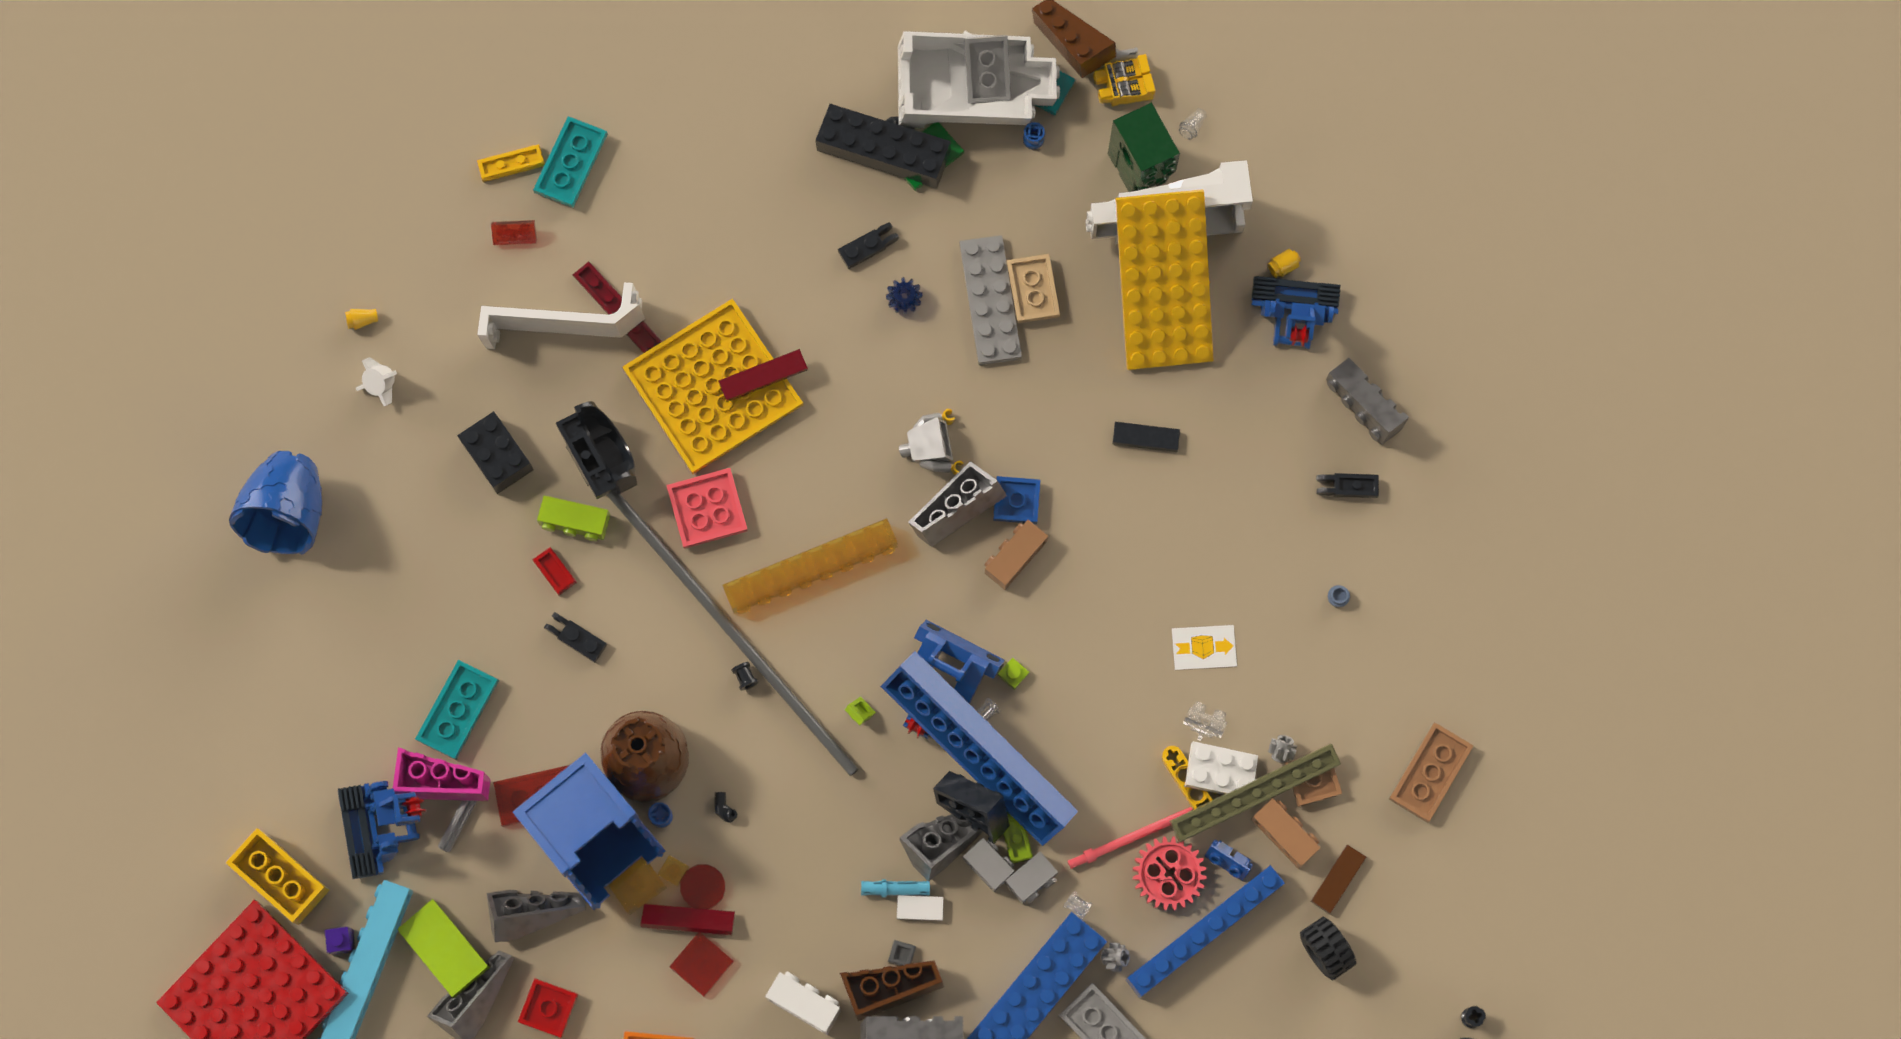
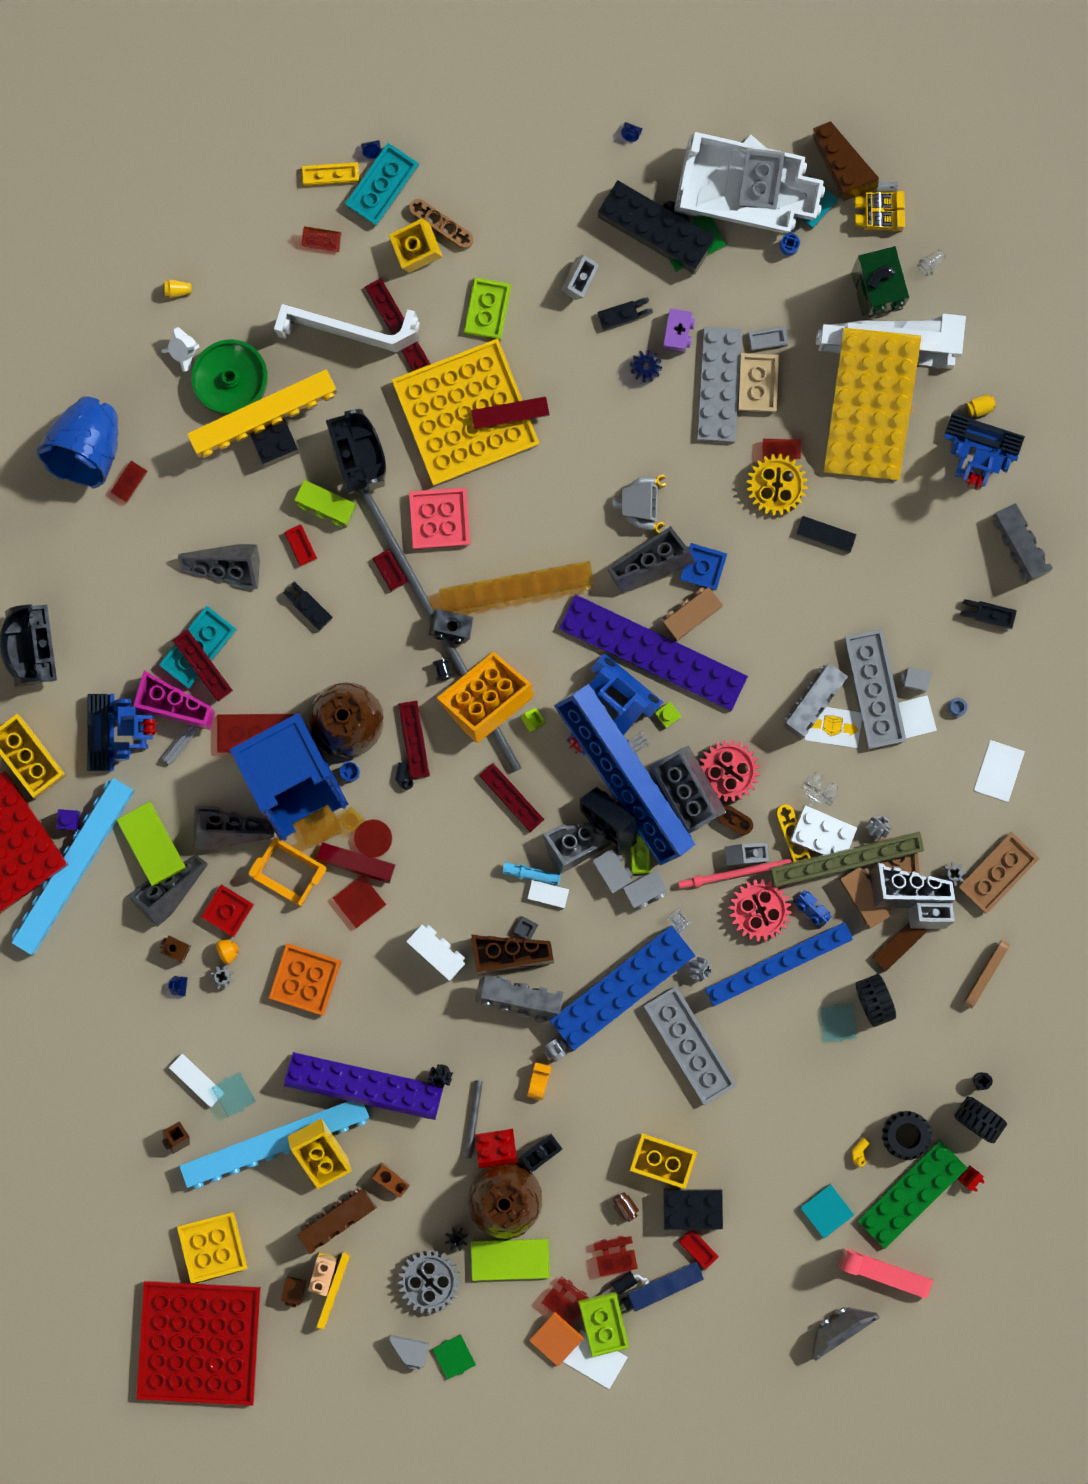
camera: 15 degrees right, 10 degrees up
(257, 748) = (28, 646): none -> black piece
(344, 540) = (129, 481): none -> clear red plate
(437, 400) = (229, 376): none -> green dish
(466, 728) = (202, 665): none -> dark red tile
(475, 608) = (231, 563): none -> flat silver wedge
(481, 429) = (262, 413): none -> yellow brick
(551, 127) = (371, 149): none -> clear blue plate
(576, 942) = (259, 864): none -> light orange piece
(620, 217) = (415, 245): none -> yellow brick
(643, 193) = (443, 221): none -> medium nougat beam
(662, 577) = (389, 570): none -> dark red tile
(714, 270) = (487, 308): none -> lime tile
(727, 763) = (414, 739): none -> dark red tile
(754, 618) = (461, 623): none -> black brick
(801, 695) = (486, 696): none -> light orange slope
(809, 215) = (579, 277): none -> light grey brick
(834, 54) = (631, 132): none -> clear blue plate
(854, 805) = (511, 797): none -> dark red tile
(929, 262) = (677, 319): none -> medium lavender brick
(981, 607) = (653, 652): none -> dark purple plate
(1032, 240) = (767, 338): none -> light grey tile
(1055, 751) = (688, 789): none -> flat silver brick
(1074, 354) = (784, 446): none -> clear red plate
(1098, 391) = (795, 485): none -> yellow gear
(1106, 703) = (740, 756): none -> coral gear
(1116, 777) = (735, 820): none -> reddish brown plate
(1138, 811) = (746, 853): none -> light grey slope
(1140, 134) = (878, 274): none -> black arm
(1176, 622) = (815, 701): none -> flat silver wedge
(1241, 595) = (875, 689): none -> light grey plate
(1284, 574) = (915, 679): none -> light grey brick
(1284, 622) = (917, 716): none -> white sticker
(1289, 986) = (838, 1022): none -> clear light blue piece
(1329, 813) = (903, 889): none -> flat silver wedge
(1367, 836) = (931, 915): none -> light grey brick
(1386, 784) = (959, 873): none -> light grey gear
(1402, 658) = (999, 770): none -> white sticker
(1446, 891) = (986, 974): none -> medium nougat beam

